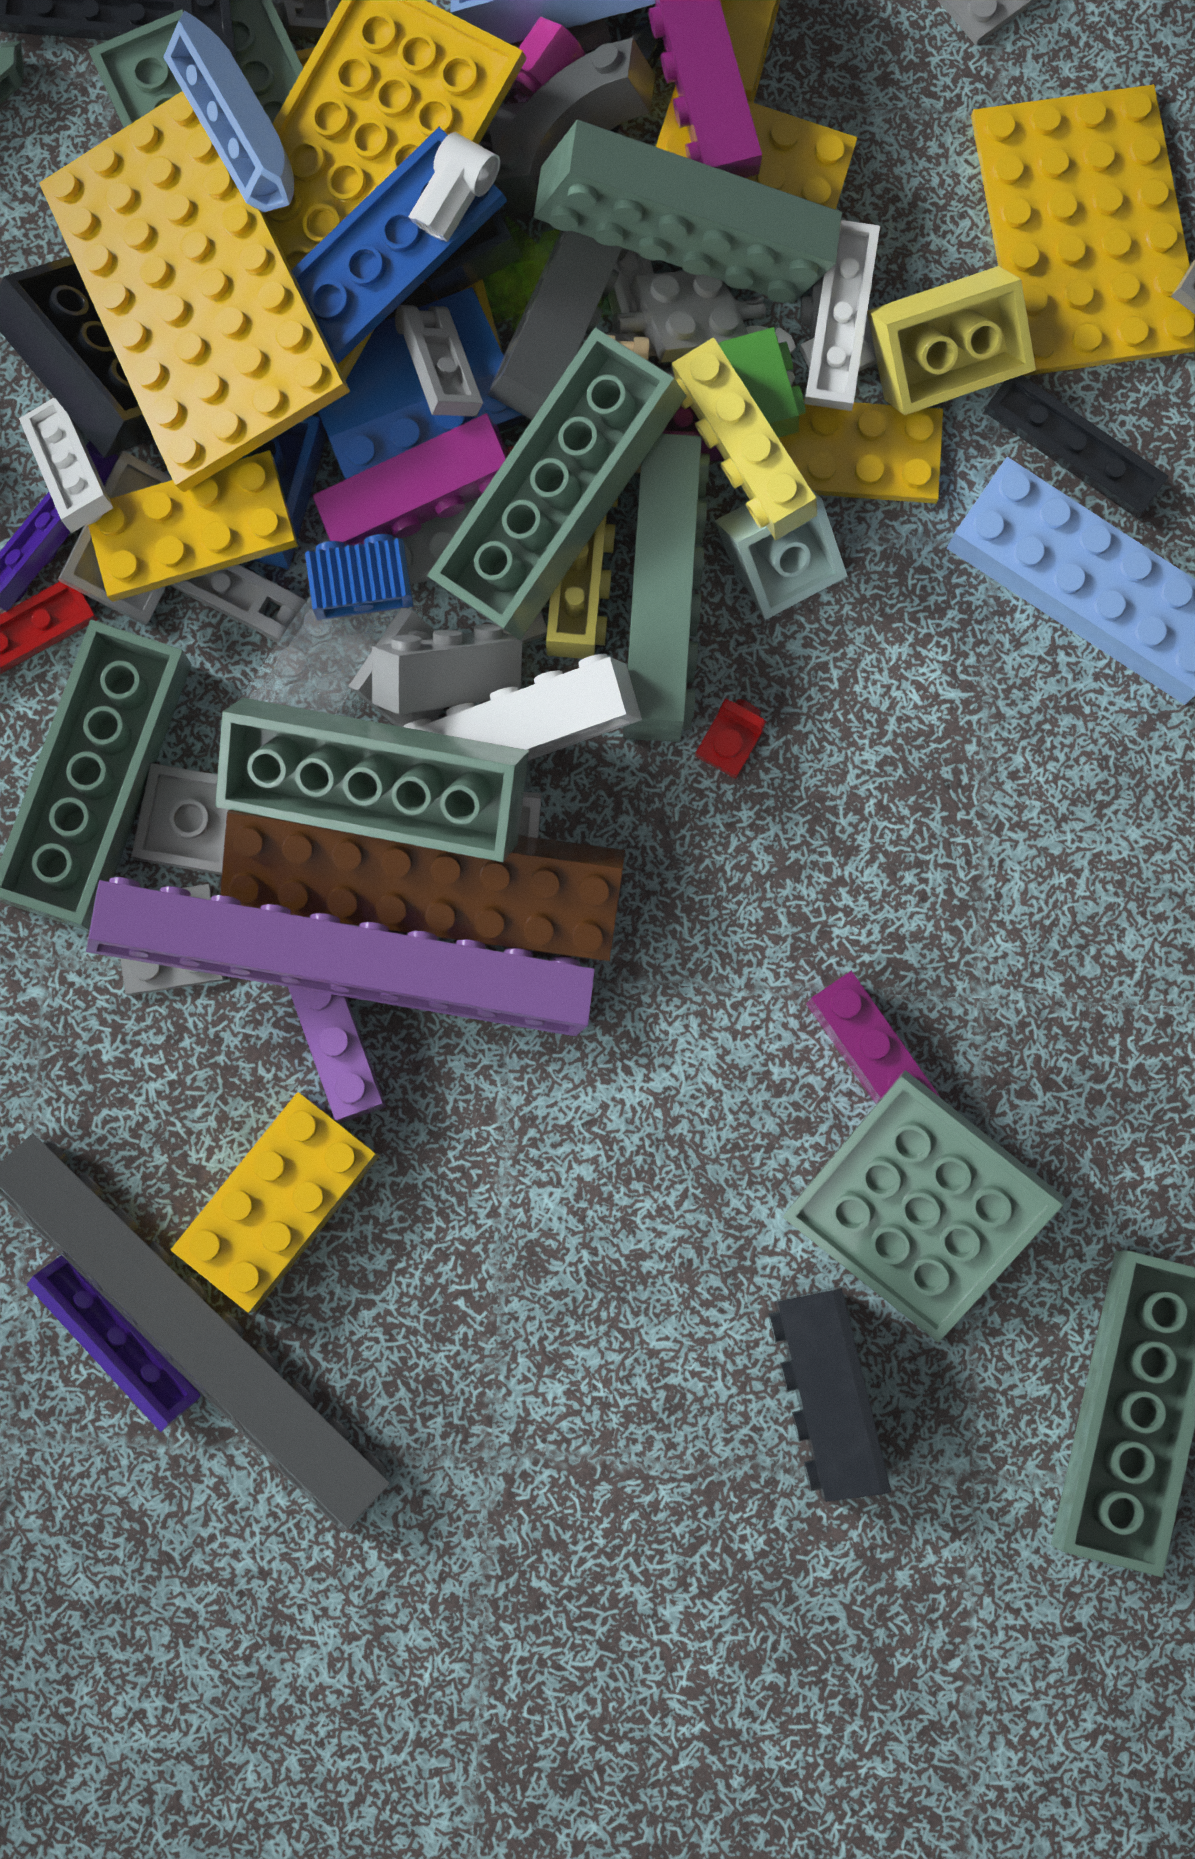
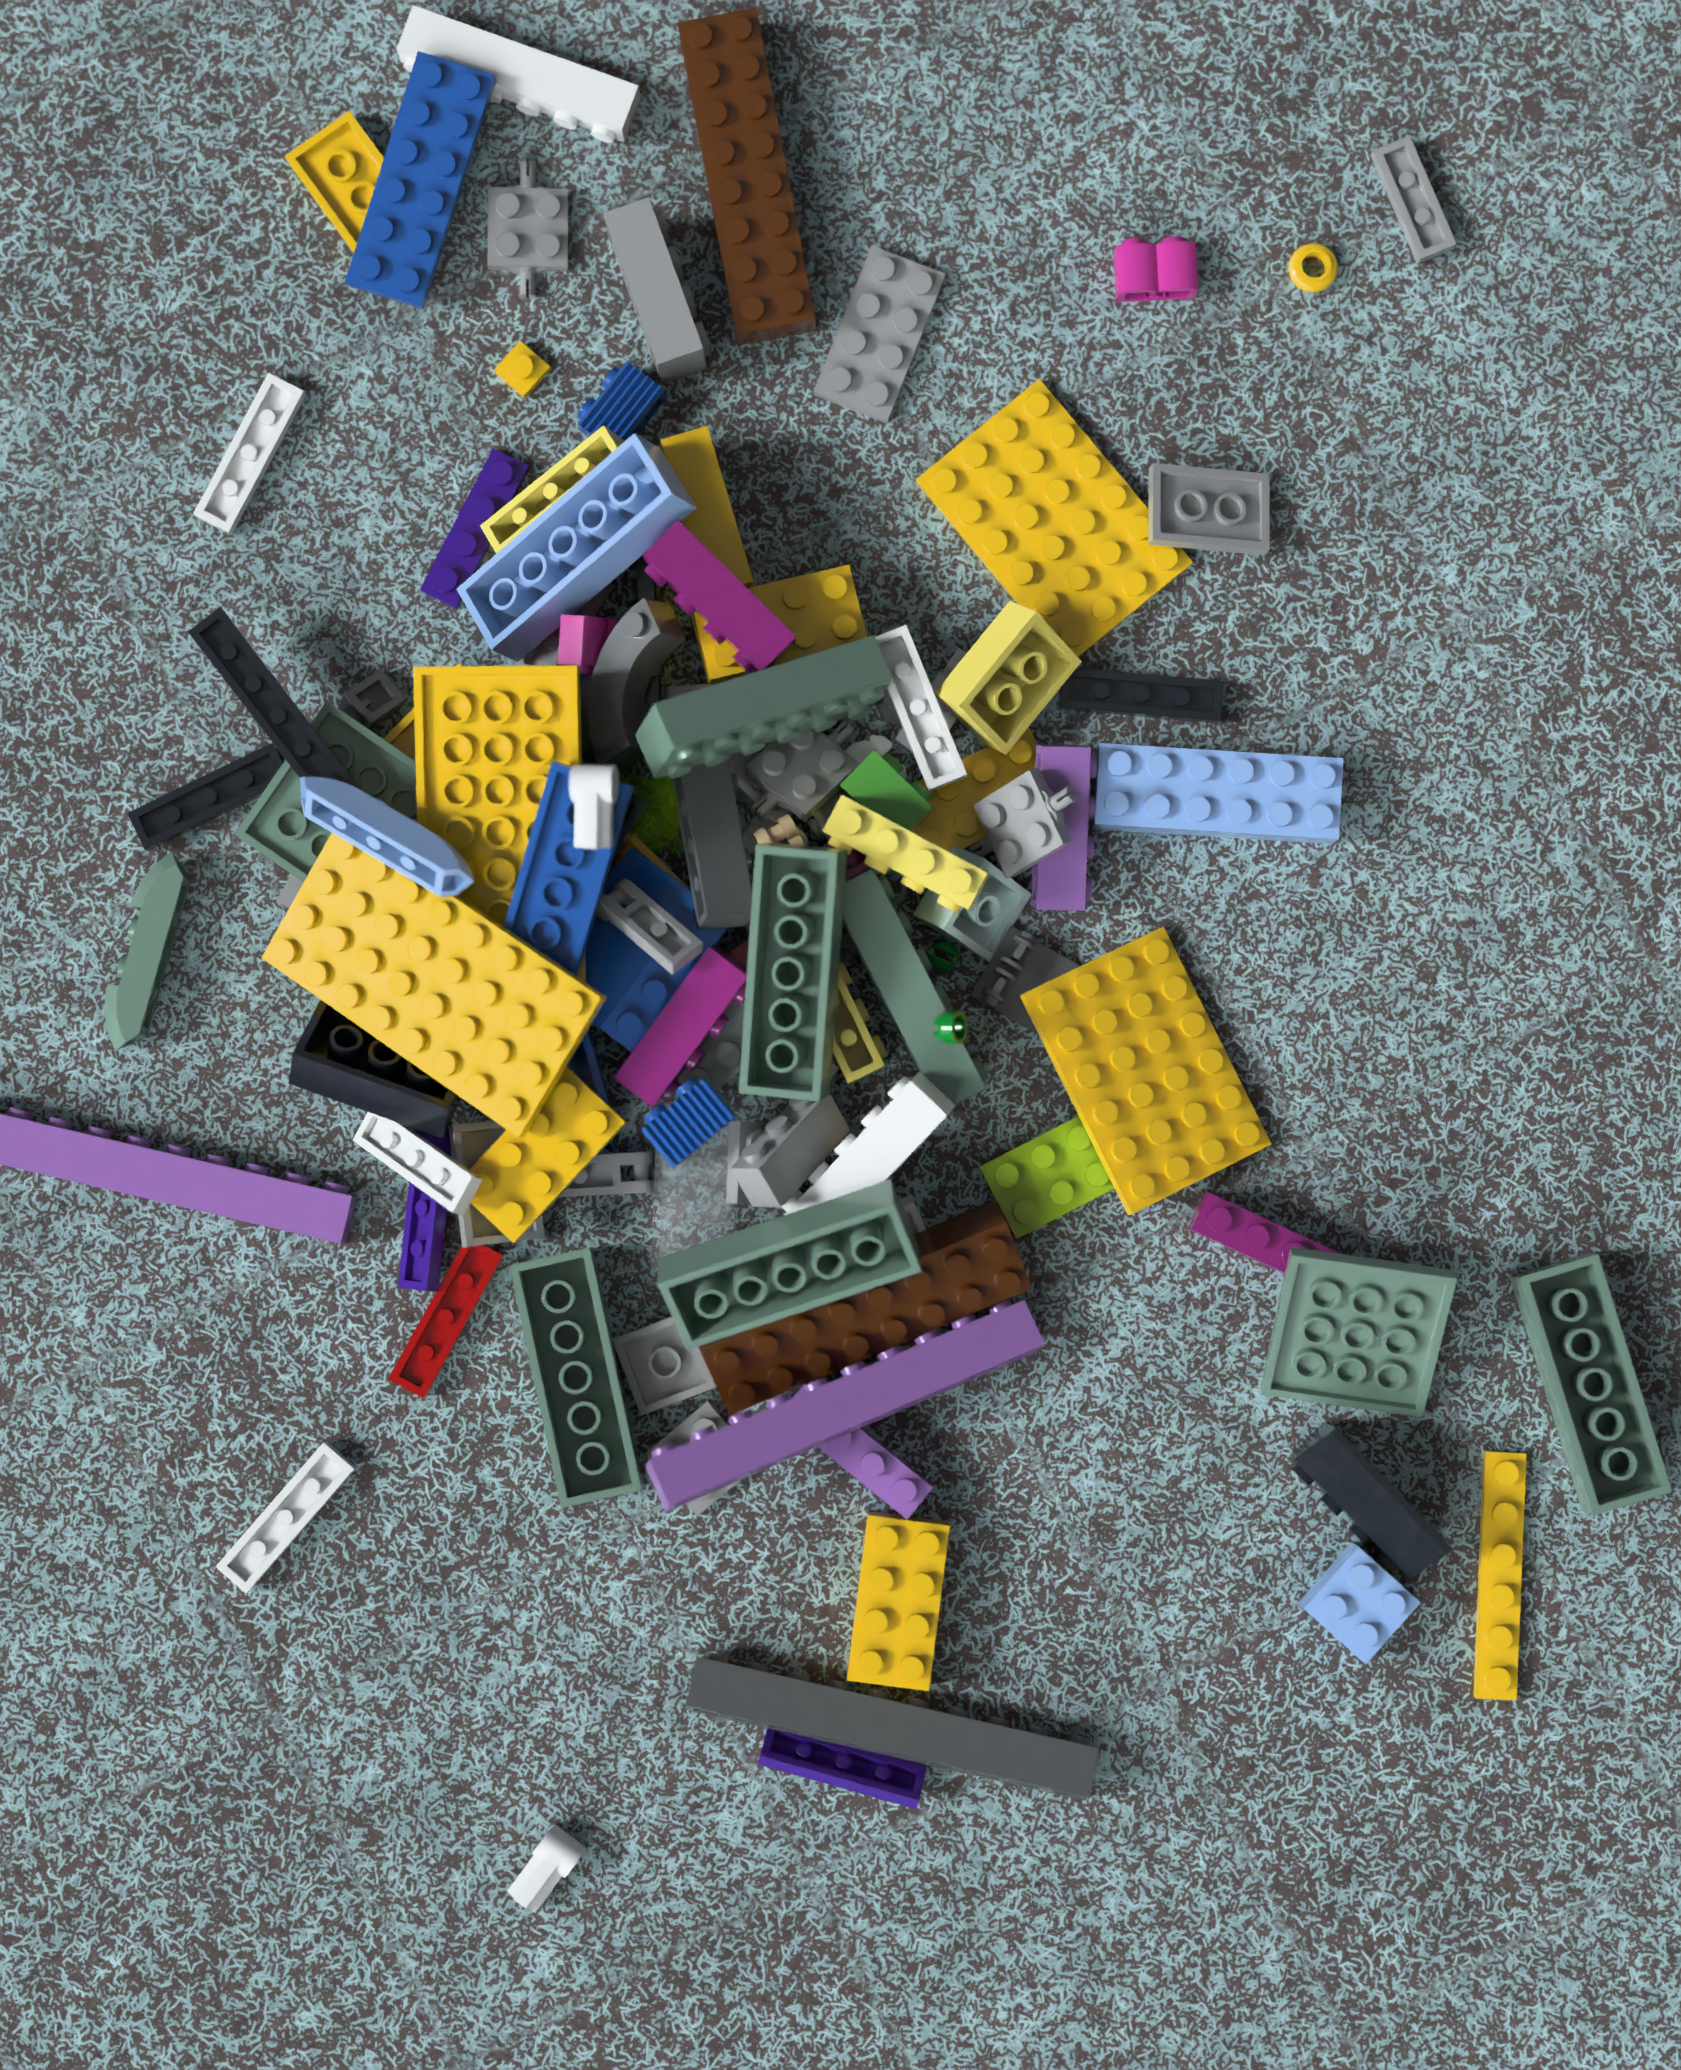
camera: 25 degrees left, 5 degrees up
(685, 635) = (951, 1027): none -> green hinge
(714, 590) = (940, 964): none -> green hinge
(723, 867) = (1046, 1177): none -> lime plate
(732, 736) = (1019, 1067): red bracket -> none
(757, 1497) = (1359, 1602): none -> light blue brick
(789, 656) = (1015, 969): none -> dark grey hinge
(859, 814) = (1145, 1070): none -> yellow plate
(884, 485) = (1023, 822): none -> light grey plate
(918, 518) = (1061, 878): none -> medium lavender brick
(922, 1561) = (1499, 1575): none -> yellow plate

